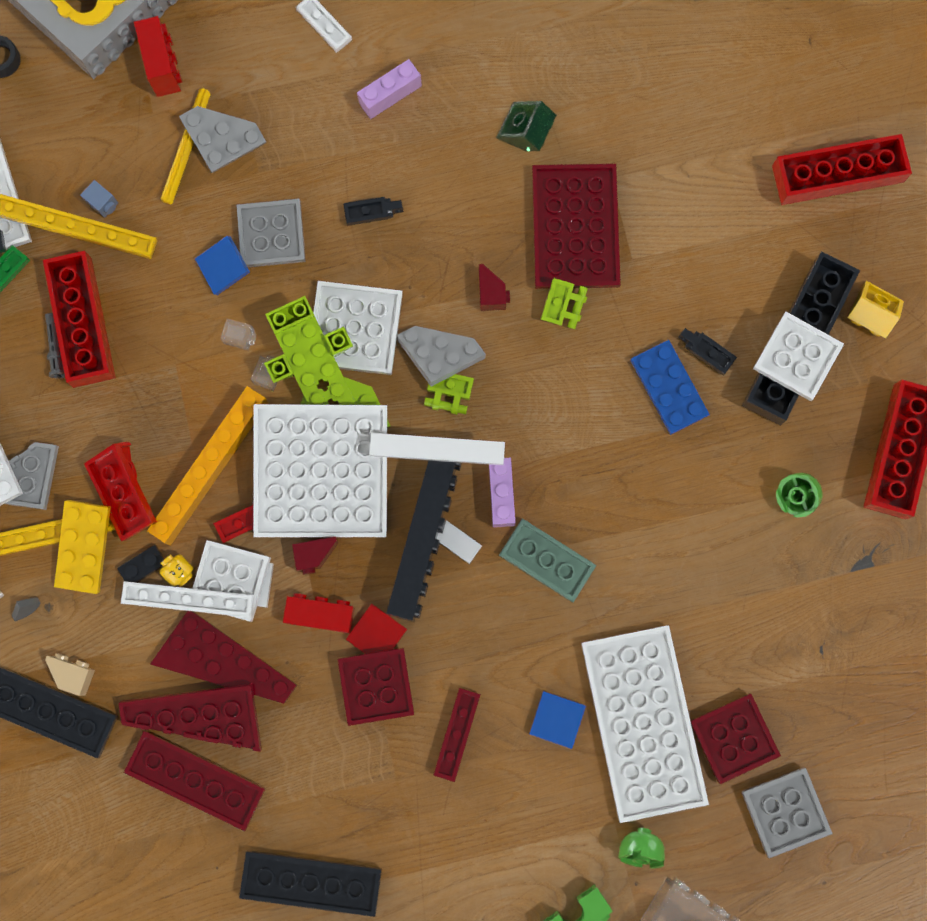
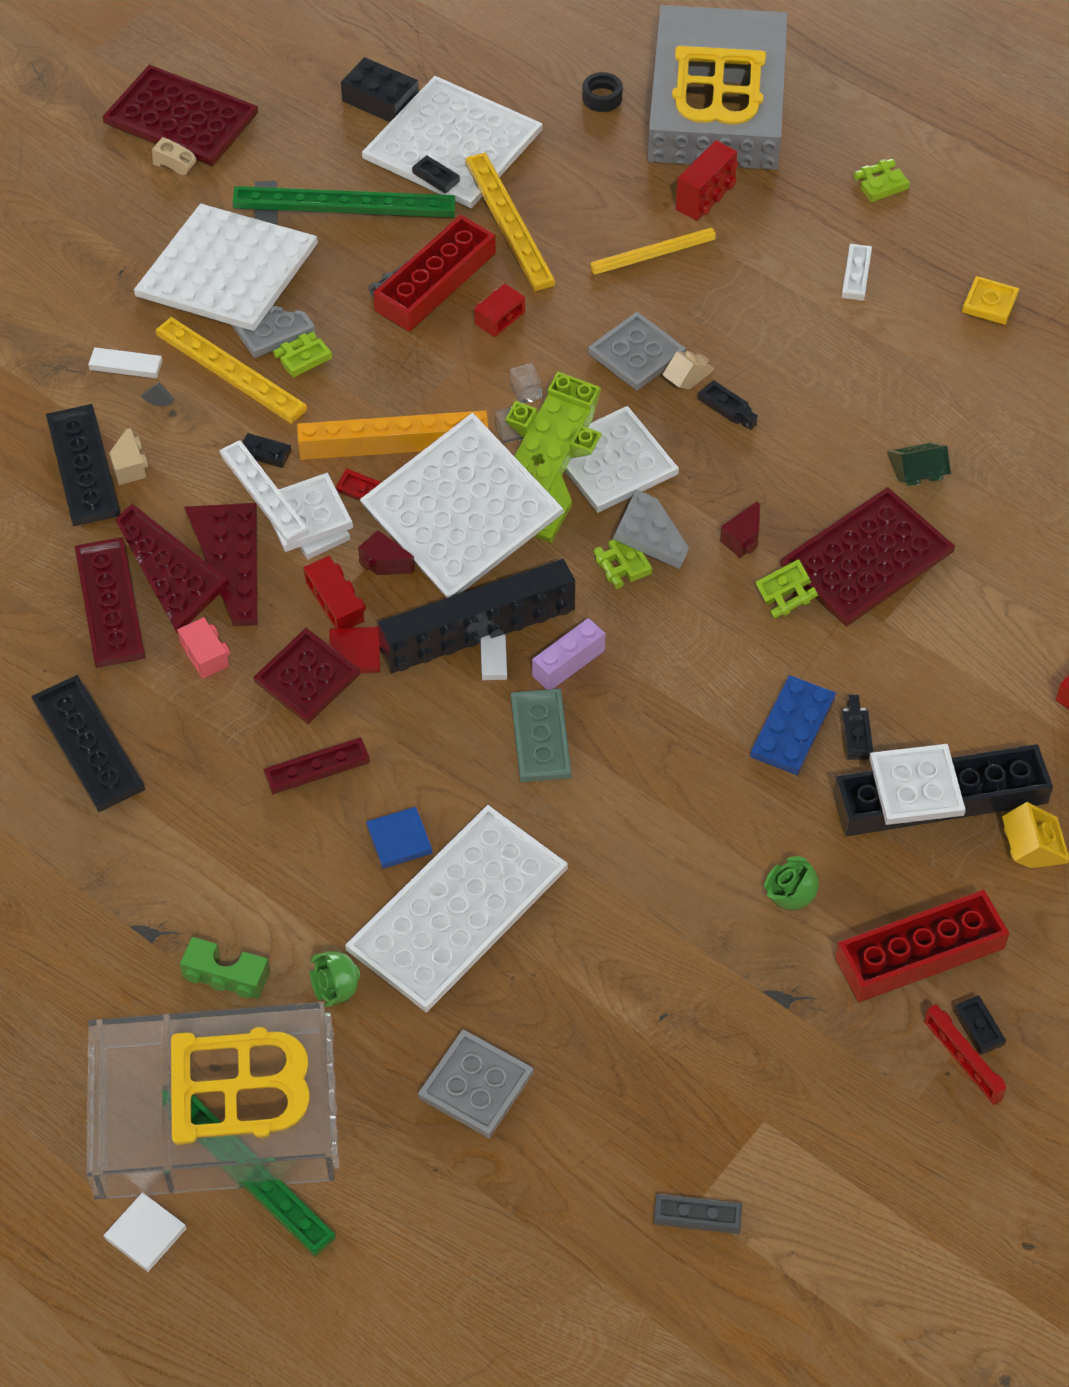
camera: 50 degrees right, 25 degrees down
(78, 479) = (302, 354): none -> lime plate
(82, 546) = (244, 395): yellow plate -> none
(99, 199) = (549, 224): sand blue brick -> none
(119, 489) = (317, 383): red plate -> none
(152, 299) = (499, 310): none -> red brick
(176, 570) = (282, 470): yellow head -> none
(221, 136) = (684, 265): light grey plate -> none
(222, 265) = (575, 335): blue tile -> none
(292, 741) = (203, 647): none -> coral brick
(319, 213) = (687, 369): none -> tan slope
(389, 89) = (846, 346): lavender brick -> none
(437, 449) = (558, 563): white tile -> none
(735, 738) = (509, 992): dark red plate -> none

